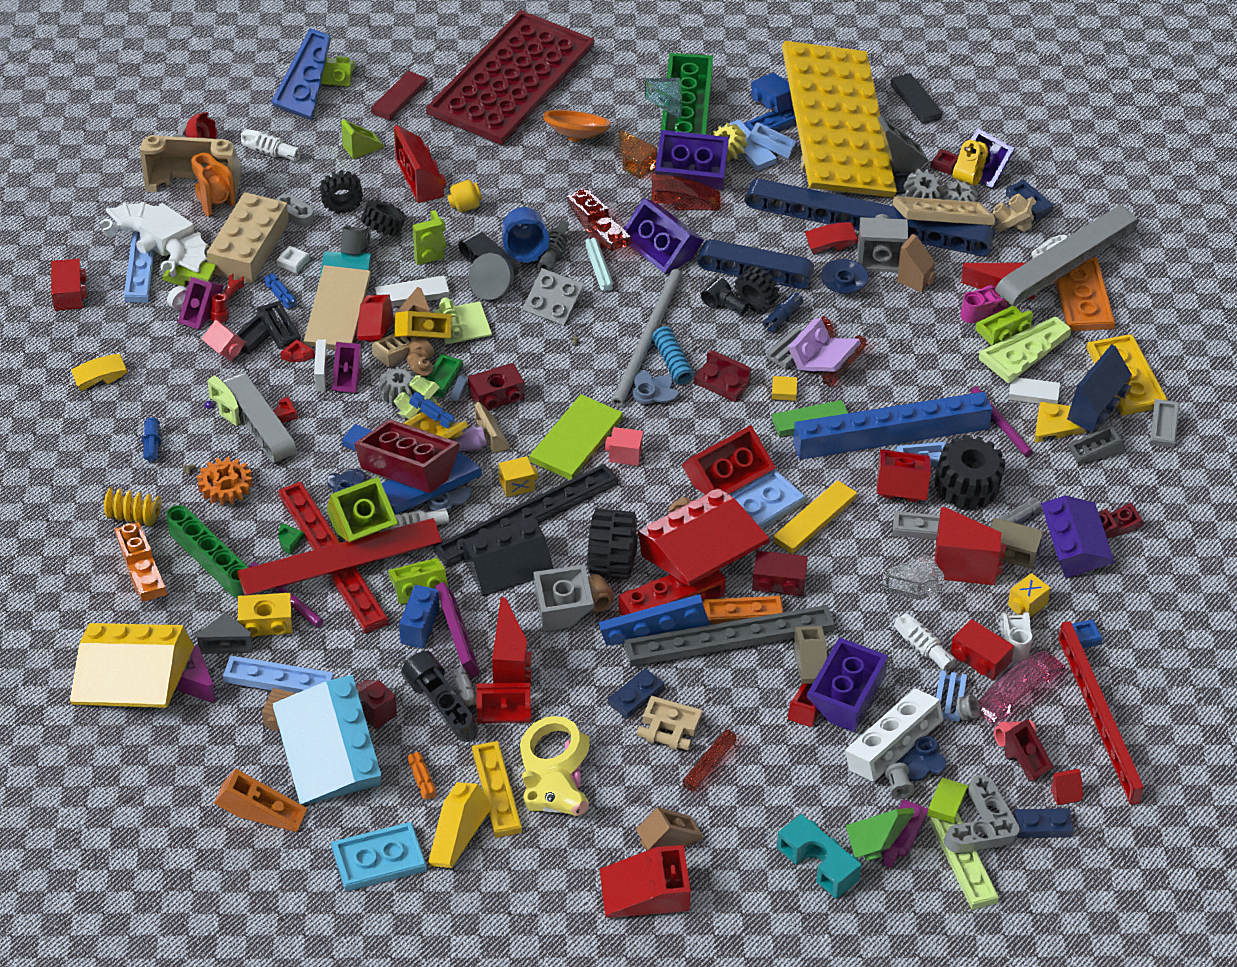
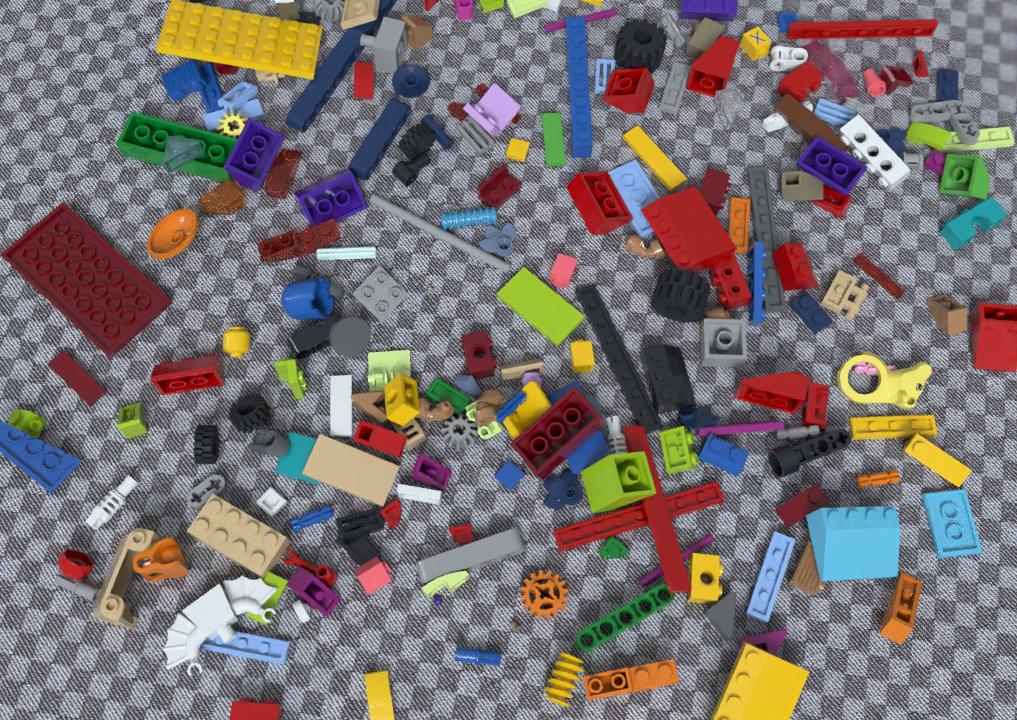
camera: 80 degrees left, 20 degrees up
(412, 381) = (485, 413): none -> medium nougat arm
(462, 587) = (697, 417): none -> dark blue plate
(690, 662) = (794, 267): none -> red slope
(908, 658) = (806, 122): none -> reddish brown slope

